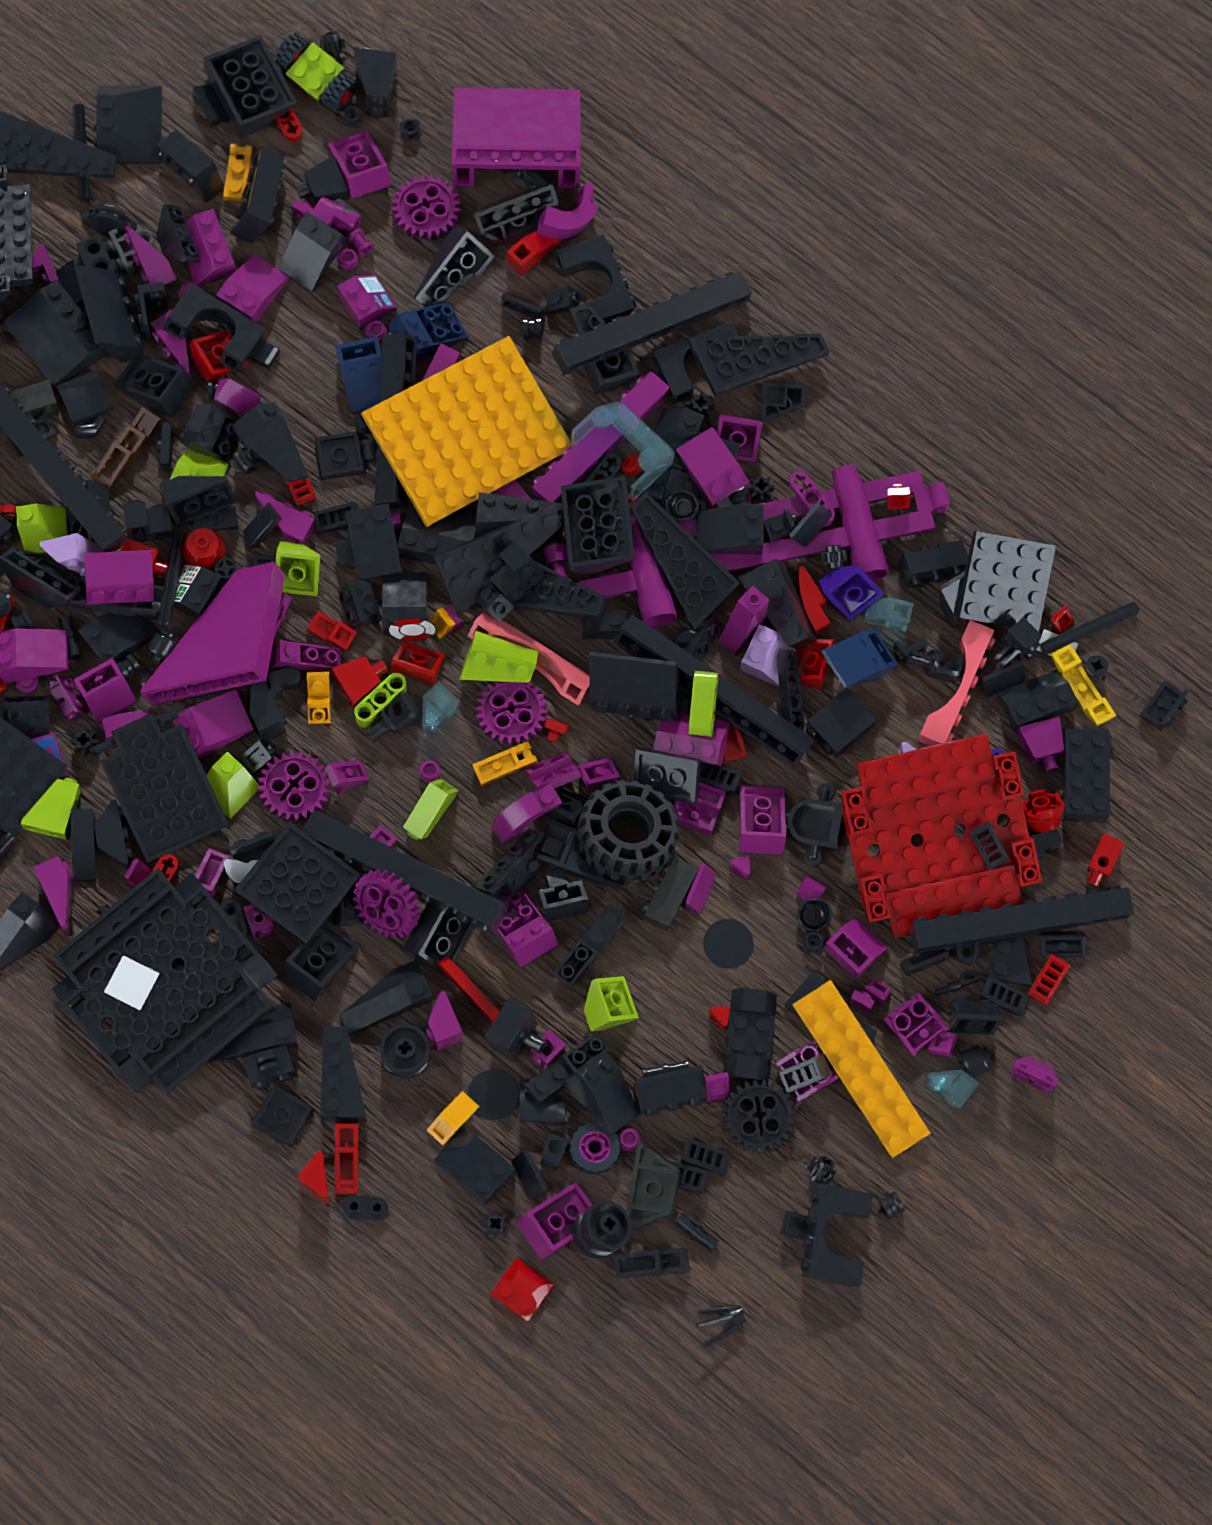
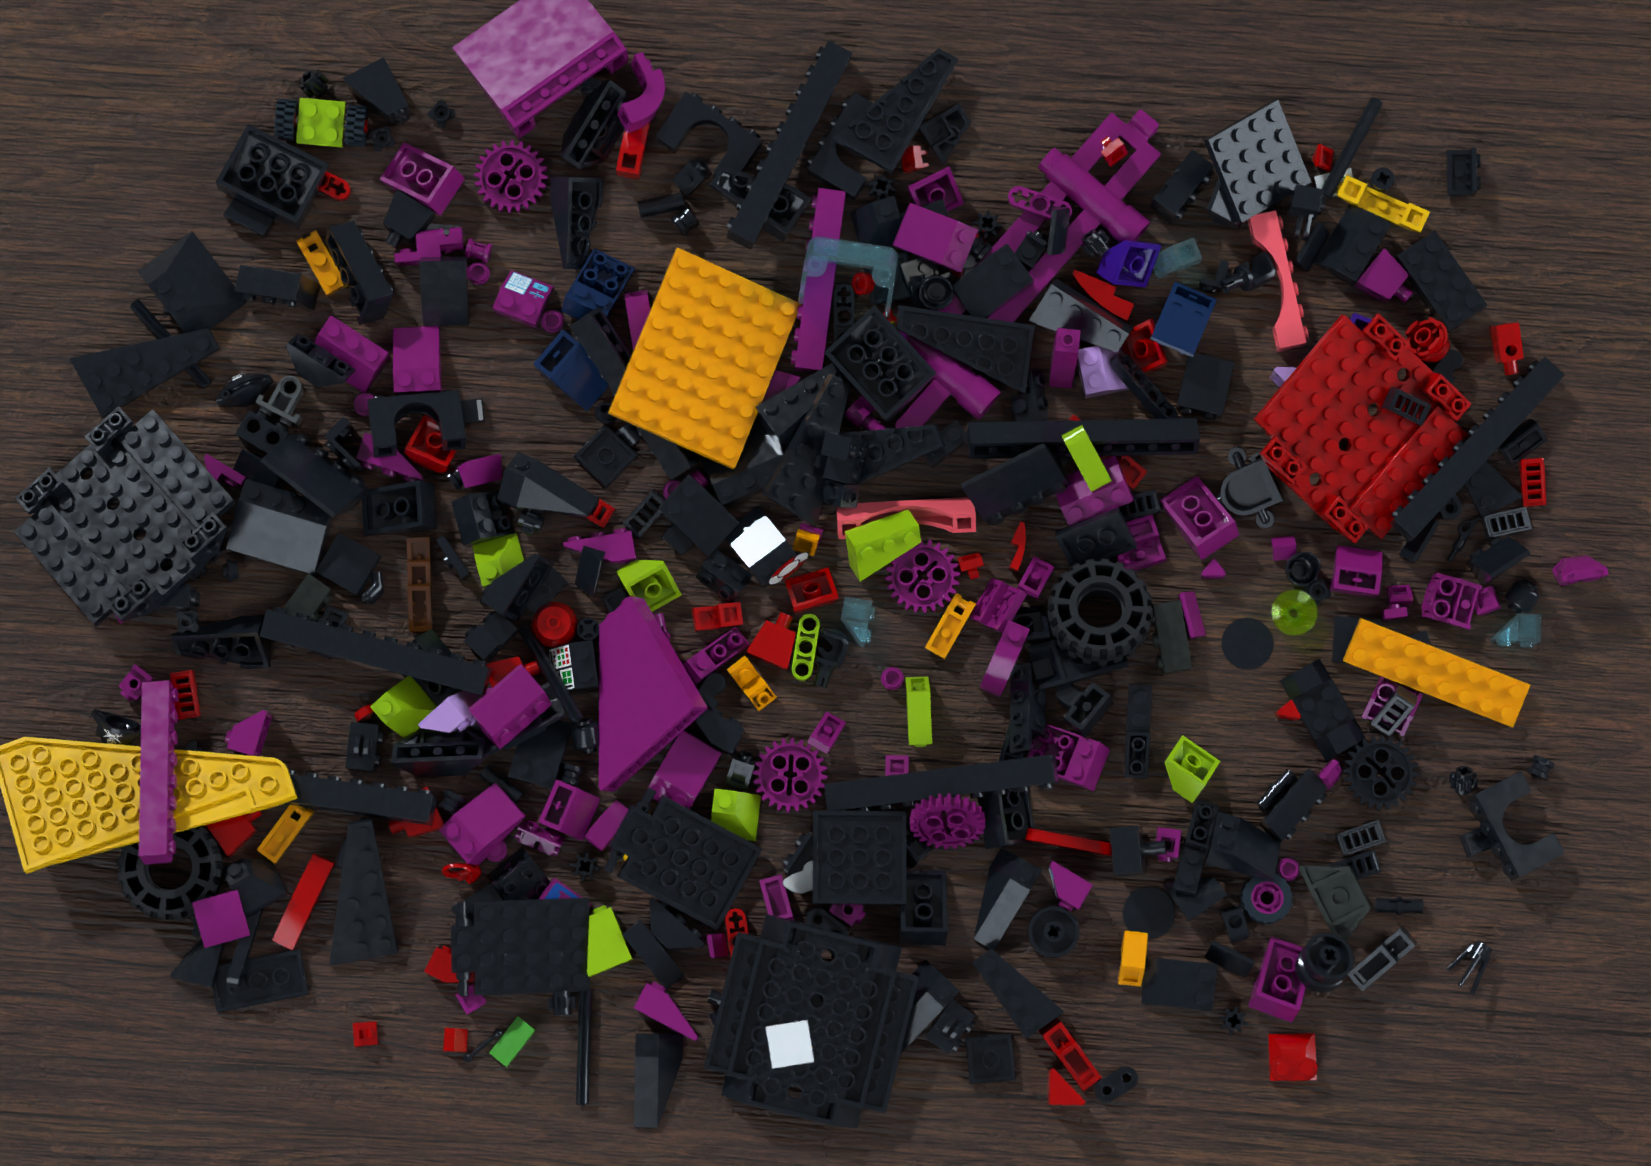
camera: 30 degrees left, 10 degrees up
(153, 264) = (315, 401): magenta slope -> none
(606, 738) = (1018, 541): none -> red slope
(739, 402) = (913, 159): none -> red tile
(785, 933) = (1303, 604): none -> clear neon green dish

